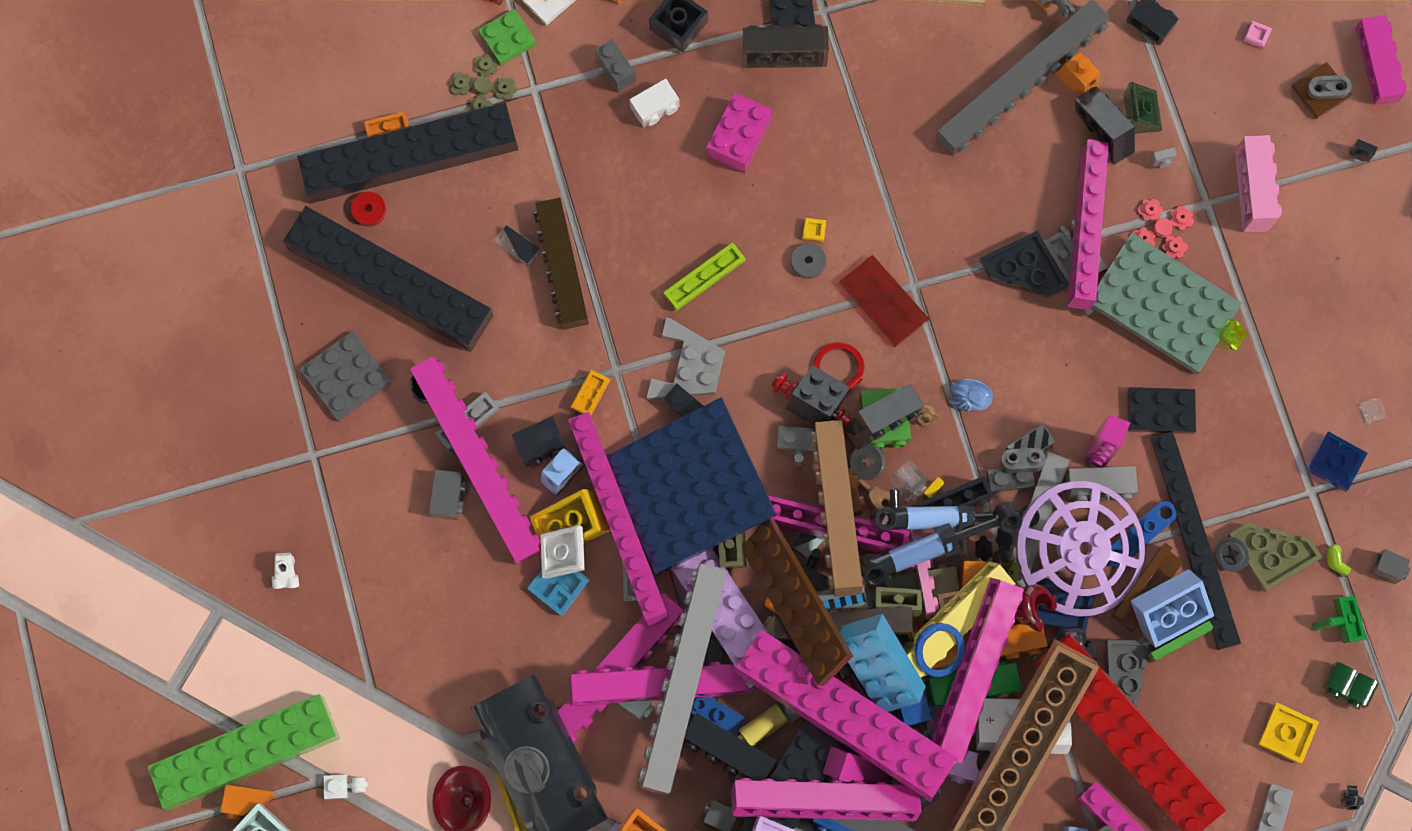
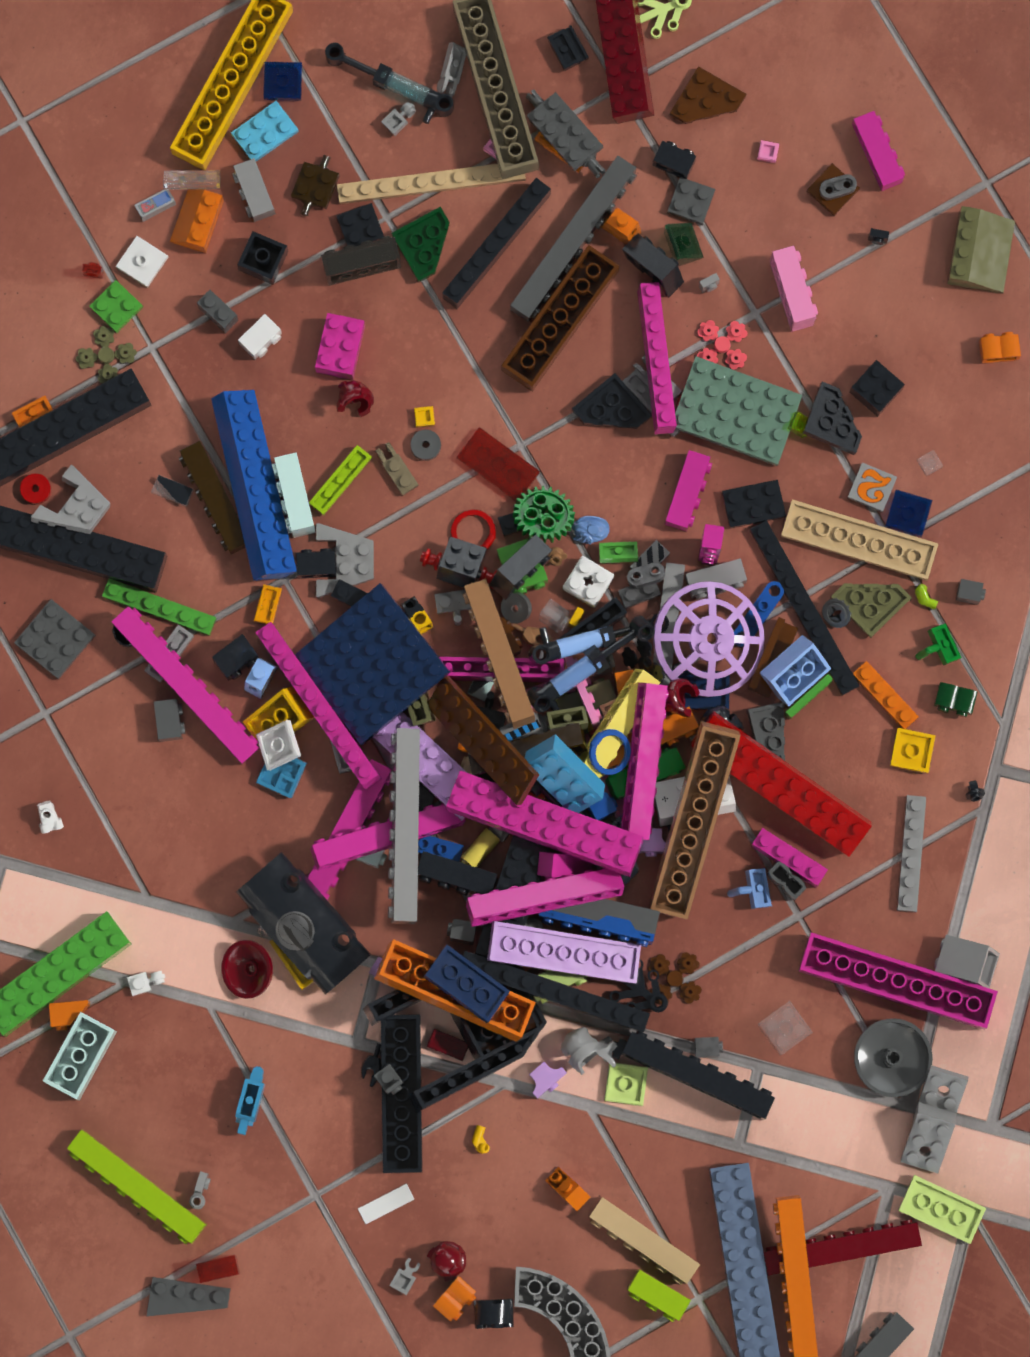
camera: 15 degrees left, 5 degrees up
(409, 242) = (82, 509): none -> light grey wing
(470, 368) = (159, 607): none -> bright green plate
(607, 259) = (253, 485): none -> blue brick
(649, 283) = (295, 497): none -> light aqua brick
(655, 361) = (316, 564): none -> black brick
(743, 185) = (355, 392): none -> dark red helmet
(754, 444) = (417, 615): none -> leg
(770, 281) = (397, 470): none -> dark tan hinge
(857, 44) = (423, 242): none -> dark green plate
(881, 368) = (507, 525): none -> black plate
(922, 361) = (543, 514): none -> green gear
(937, 63) = (496, 243): none -> black brick
(955, 466) = (592, 593): none -> white brick
(989, 157) = (560, 318): none -> reddish brown brick
(997, 427) = (618, 552): none -> bright green plate
(1091, 377) = (687, 491): none -> dark pink brick
(1161, 67) = (691, 201): none -> dark grey plate
(1268, 662) = (885, 695): none -> orange plate
(1270, 338) = (832, 420): none -> black plate
(1275, 478) = (859, 540): none -> tan plate
(1300, 423) = (872, 487): none -> tile
(1328, 314) = (877, 388): none -> black brick

